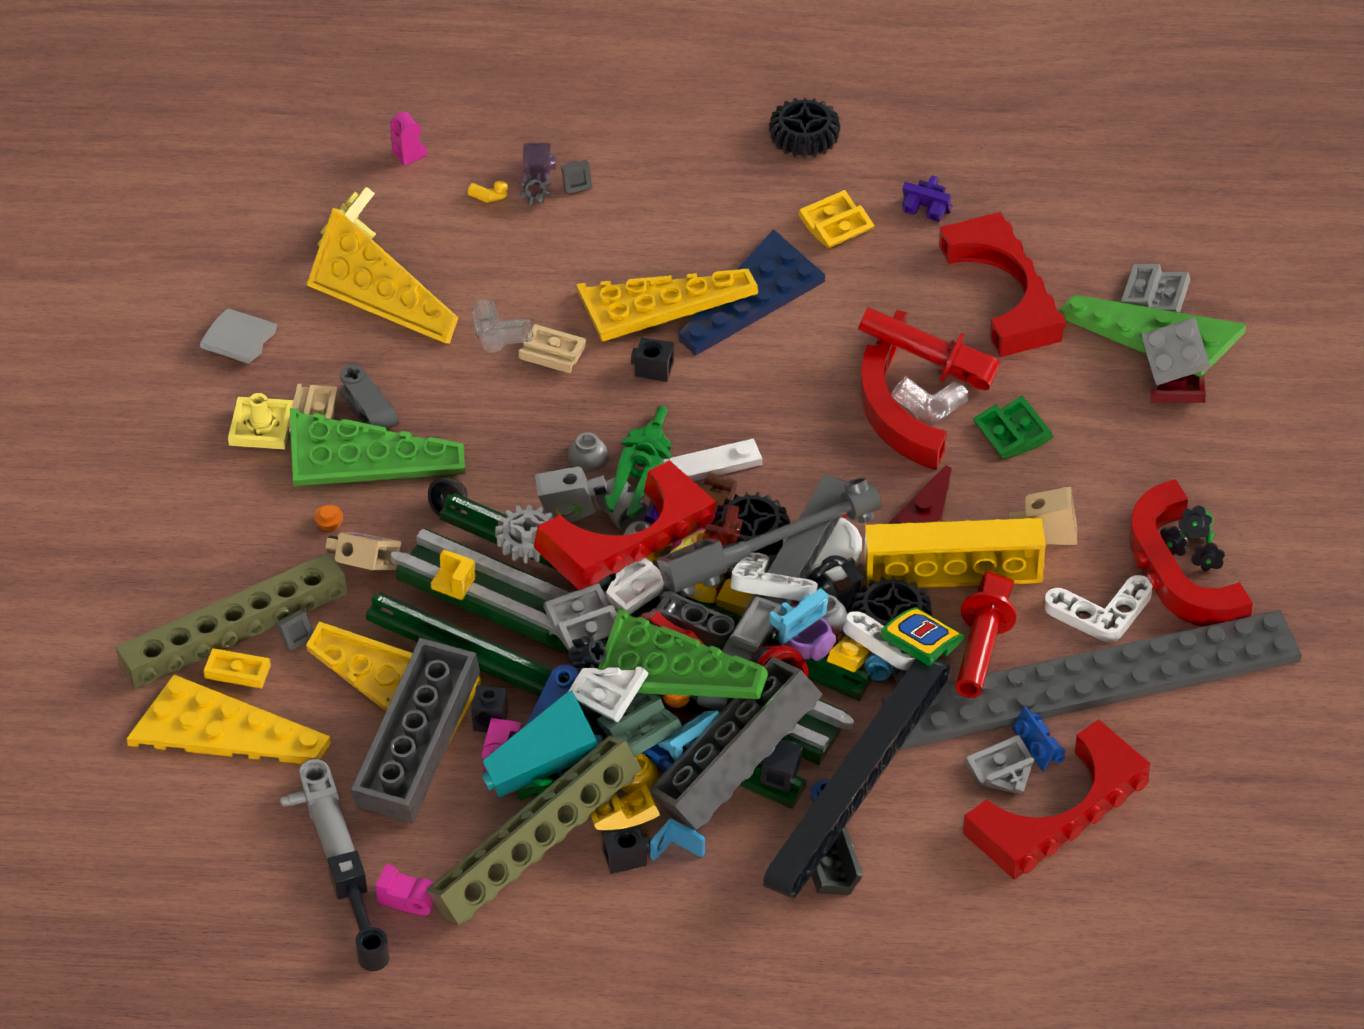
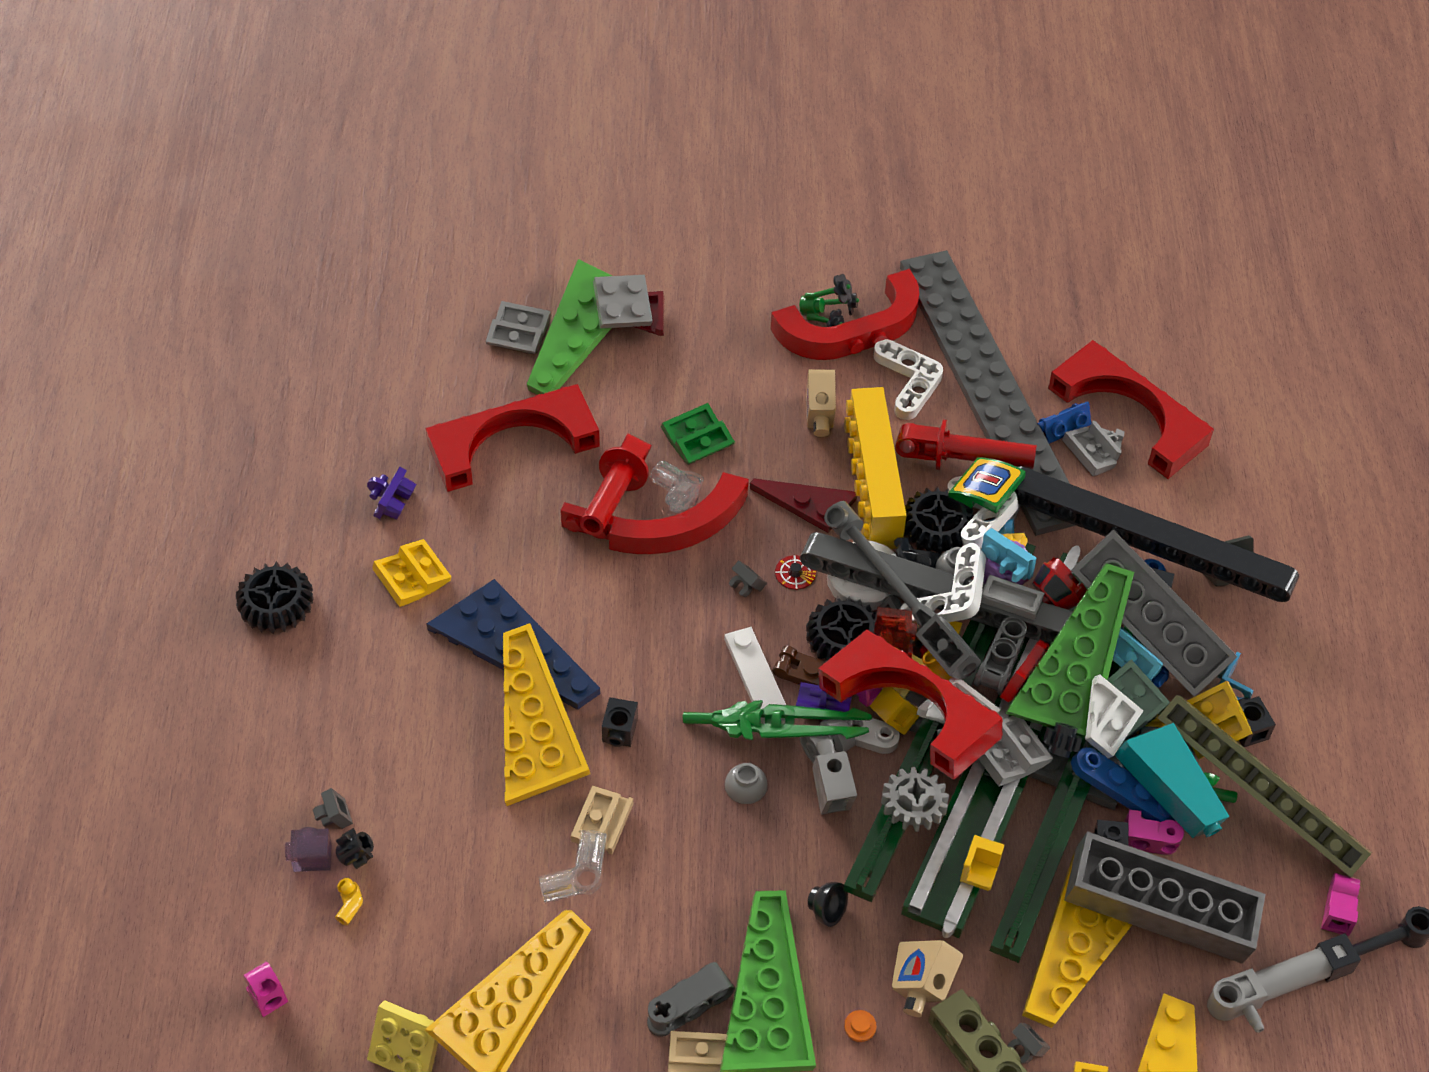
camera: 95 degrees left, 5 degrees up
(821, 456) = (748, 577): none -> dark grey tile

